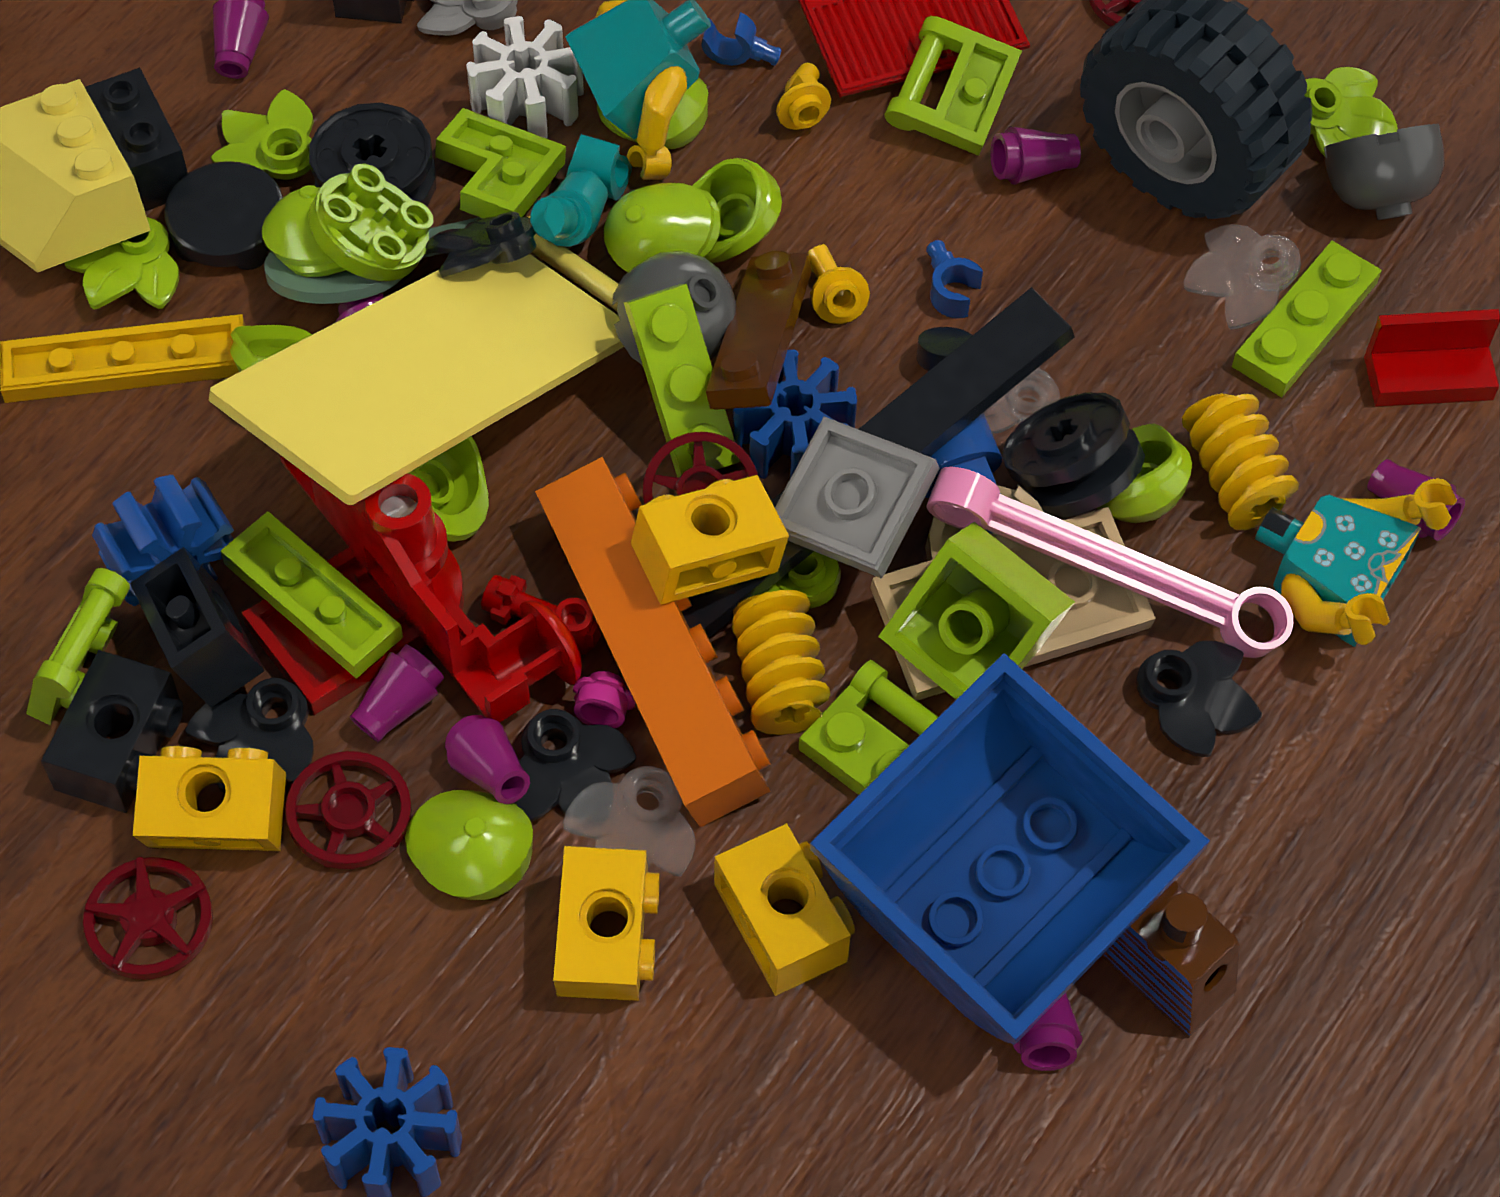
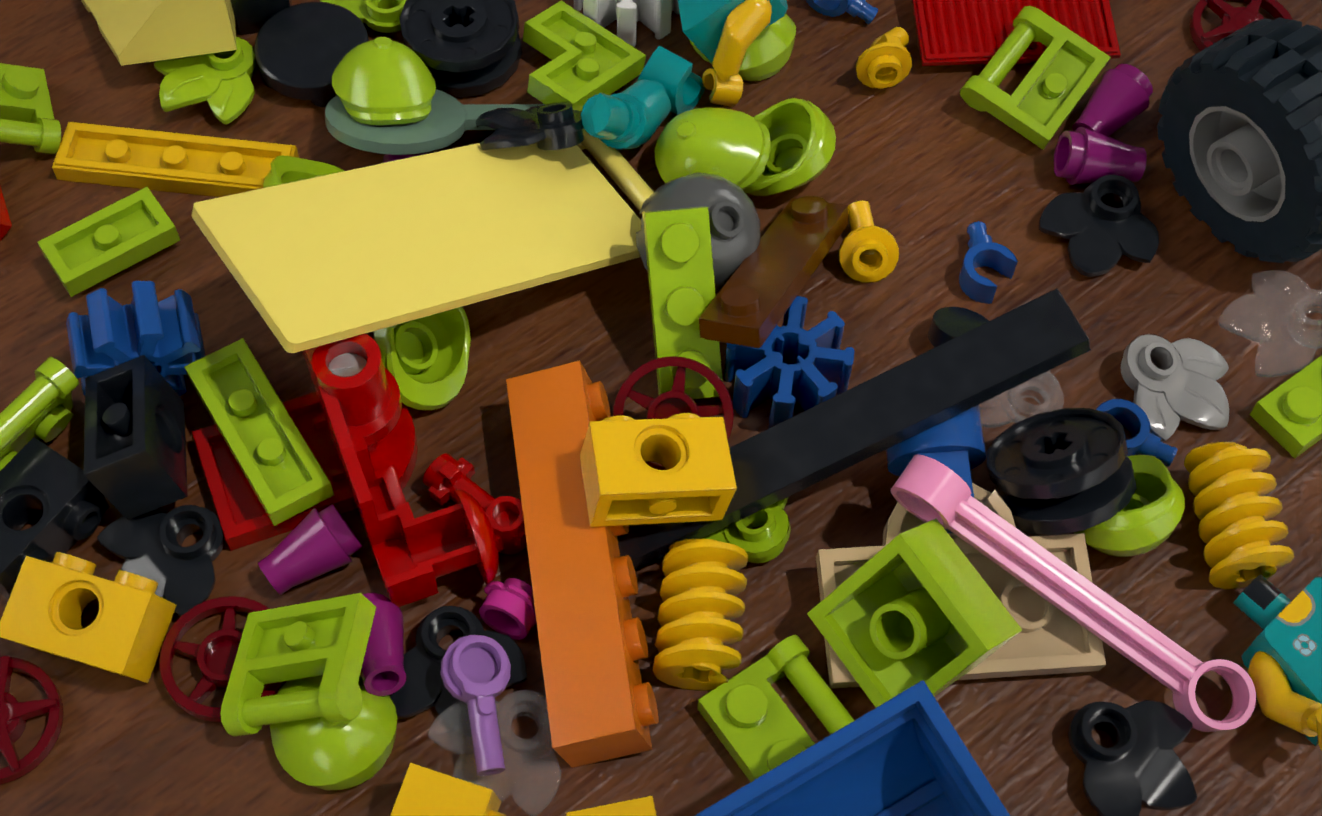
camera: 15 degrees right, 0 degrees up
(89, 450) = (109, 241): none -> lime plate
(369, 225) = (429, 86): lime tile -> none
(425, 772) = (295, 644): none -> lime plate
(593, 761) = (476, 673): none -> medium lavender plate
(854, 496) = (818, 462): light grey tile -> none
(1036, 92) = (1116, 100): none -> magenta cone
(1052, 224) = (1099, 232): none -> black plate
(1133, 401) = (1138, 425): none -> blue piece
(1161, 354) = (1179, 386): none -> light grey plate

